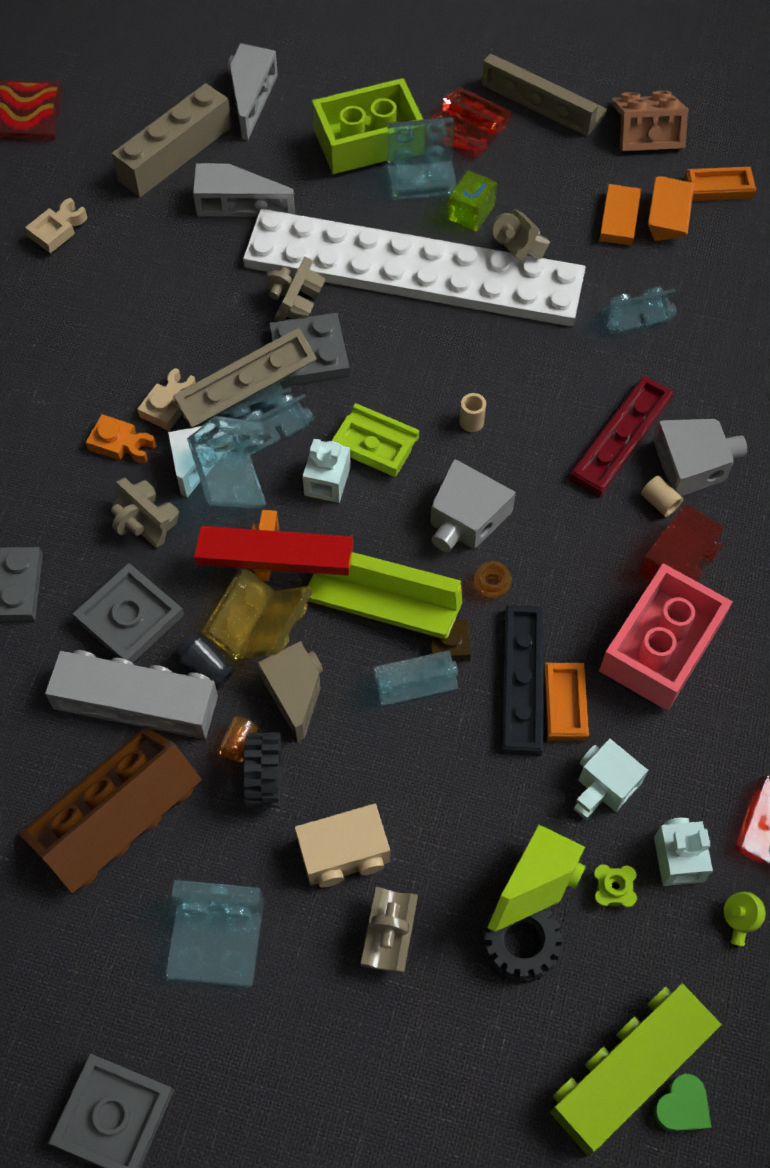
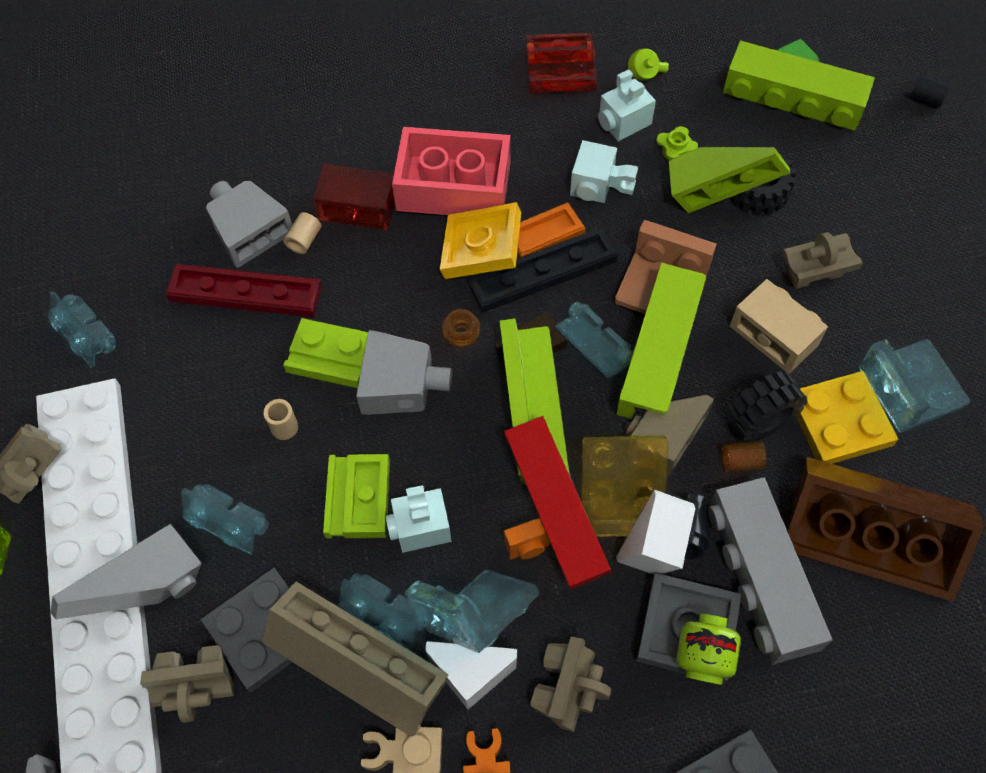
camera: 115 degrees left, 0 degrees up
(95, 598) = (708, 649): none -> lime head
(197, 608) = (659, 535): none -> white slope
(224, 846) = (844, 419): none -> yellow plate
(378, 715) = (662, 341): none -> lime panel
(383, 279) = (135, 578): none -> light grey slope
(398, 356) = (207, 509): none -> clear light blue hinge
(451, 772) = (656, 246): none -> nougat bracket
(527, 470) = (327, 353): none -> lime plate
(573, 628) = (481, 241): none -> yellow plate

